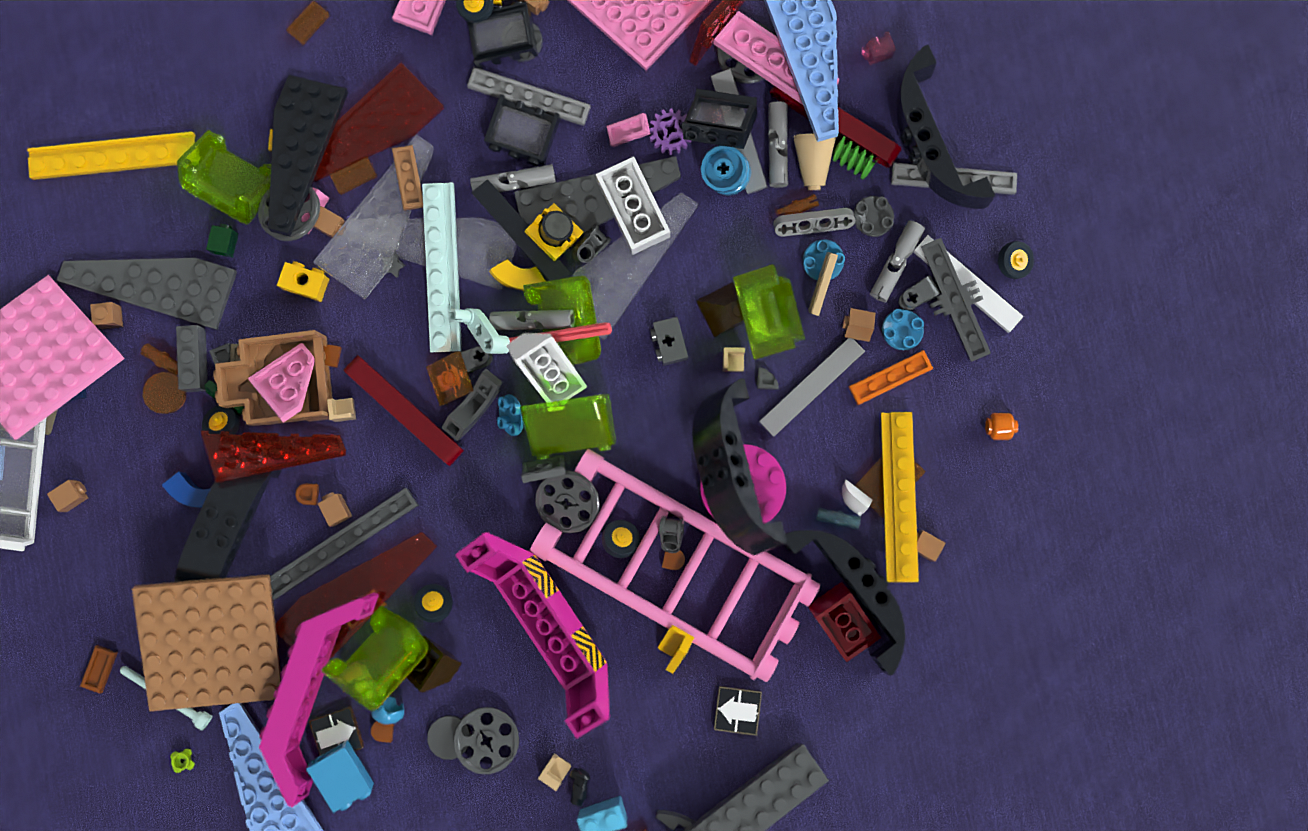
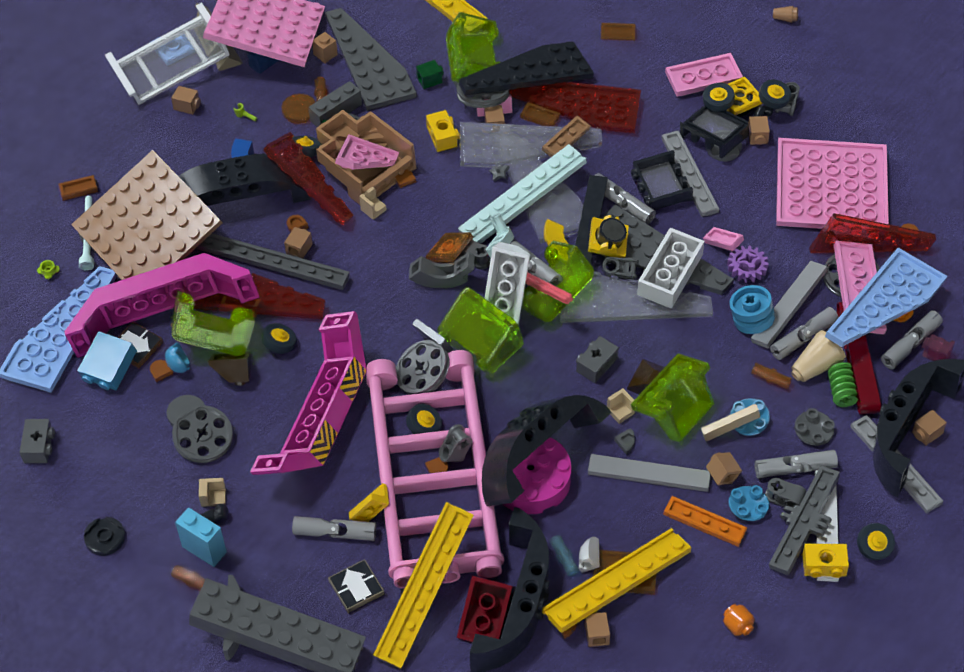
camera: 55 degrees right, 30 degrees down
(127, 449) = (240, 112): none -> lime hand
(403, 410) = (403, 239): dark red beam -> none
(510, 415) = (448, 300): dark azure dish -> none
(667, 694) = (317, 527): none -> light grey piece
(720, 118) = (784, 277): black window -> none
(793, 662) = (423, 585): none -> yellow plate
(814, 219) = (769, 394): light grey beam -> none
(855, 74) = (903, 347): none -> light grey piece
(947, 123) = (929, 427): none -> medium nougat brick
(997, 325) = (833, 553): none -> yellow brick

